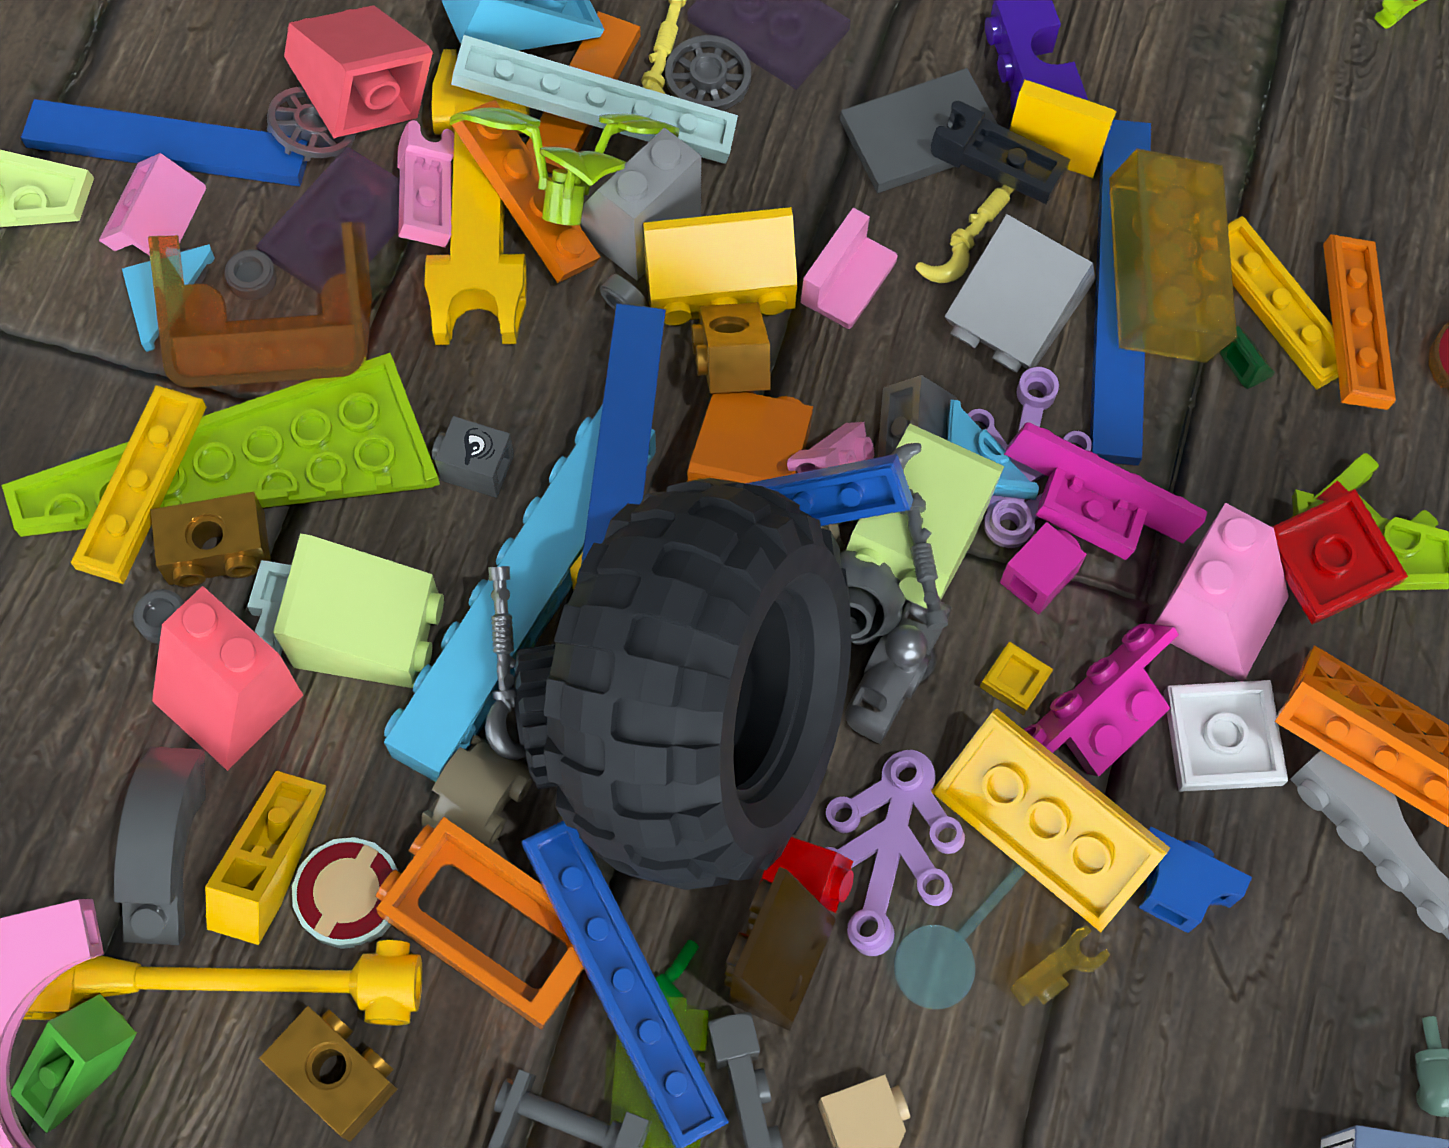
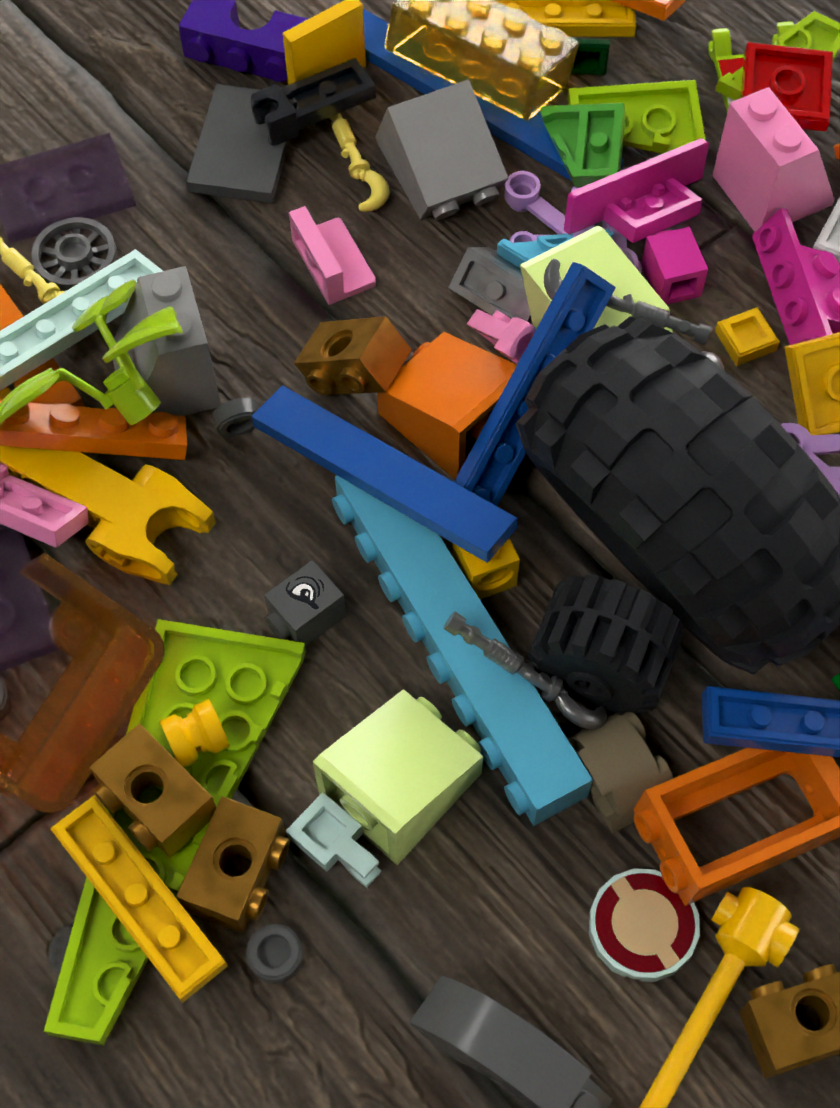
camera: 55 degrees left, 5 degrees down
(220, 679) = (391, 919): coral slope -> none
(230, 465) = (143, 762): none -> pearl gold brick
(262, 859) = (577, 976): yellow slope -> none
(295, 439) = (195, 733): none -> yellow wheel
(721, 262) = (268, 326): yellow slope -> none
(1128, 412) = (587, 138): none -> bright green wing
(1208, 444) = (657, 113): none -> lime wing

